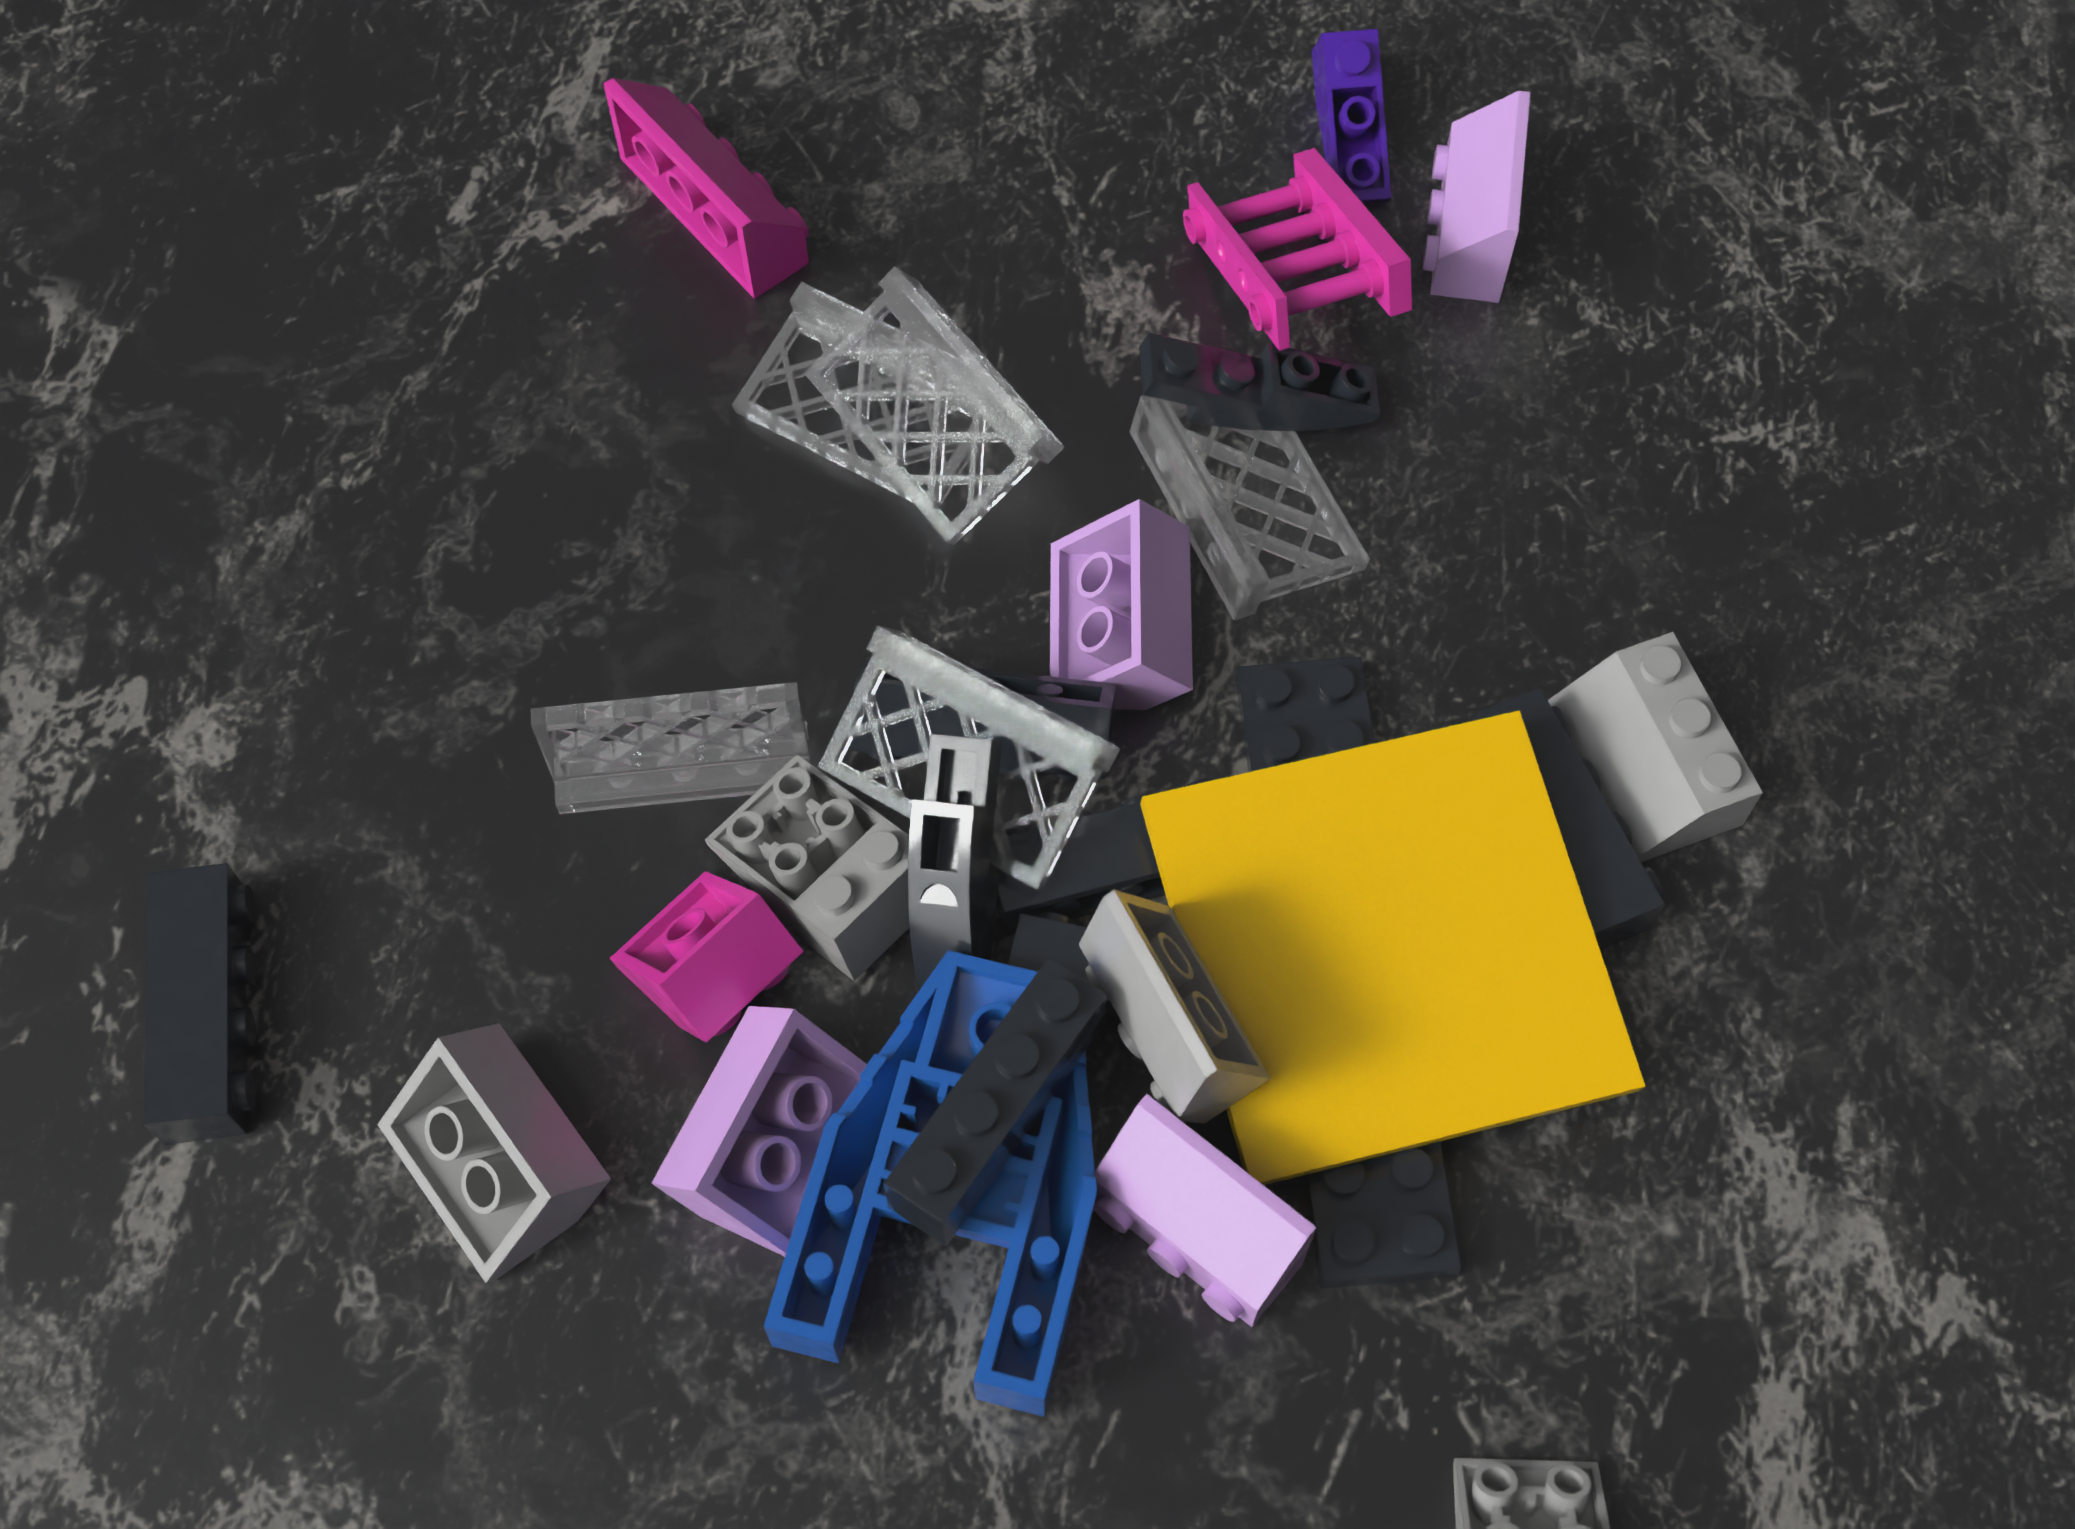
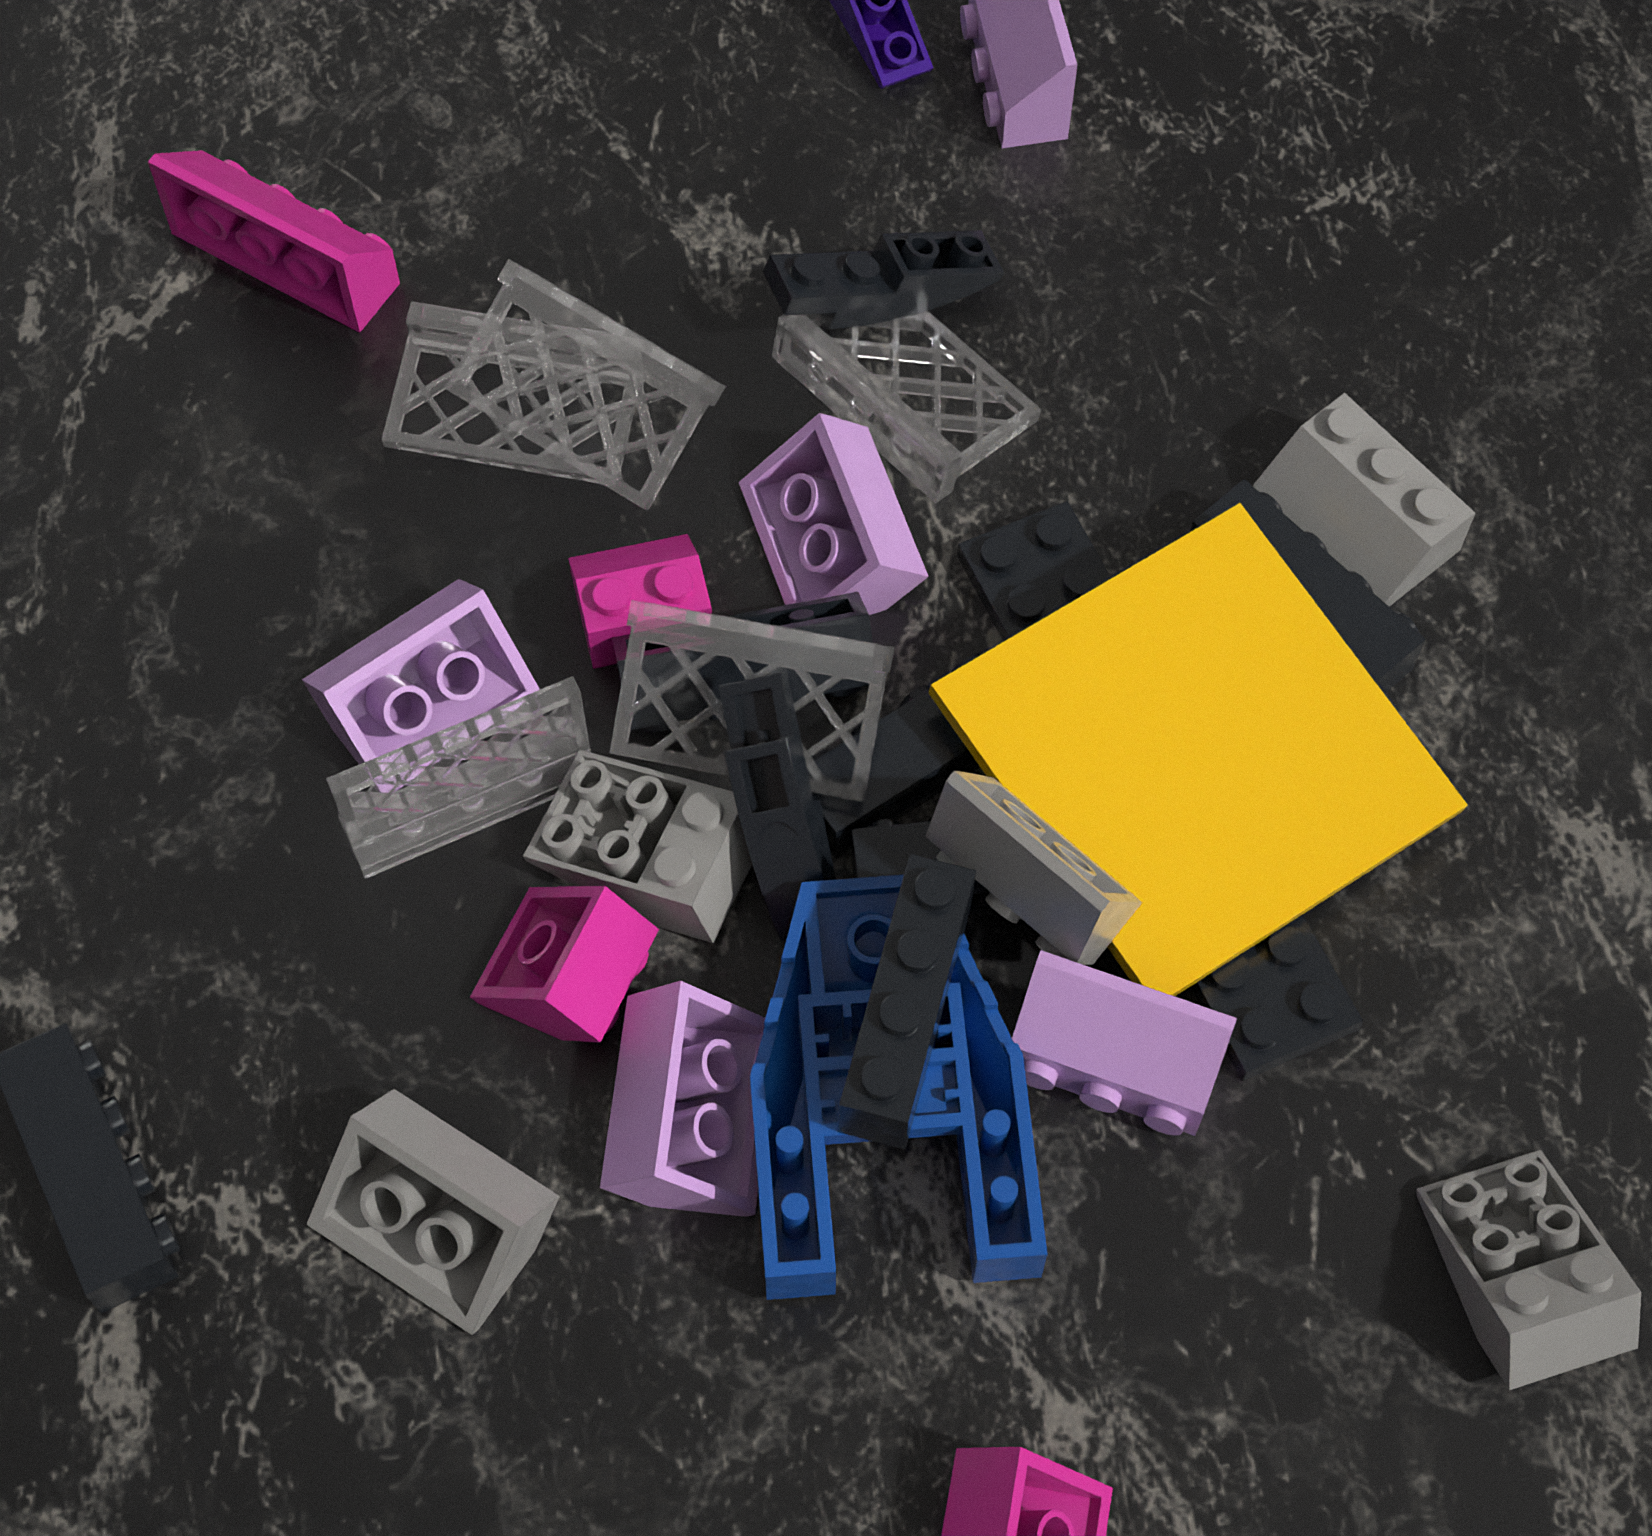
camera: 20 degrees left, 0 degrees up
(678, 636) = (421, 674): none -> lavender slope
(925, 606) = (651, 571): none -> dark pink slope
(1331, 213) = (886, 95): dark pink fence -> none

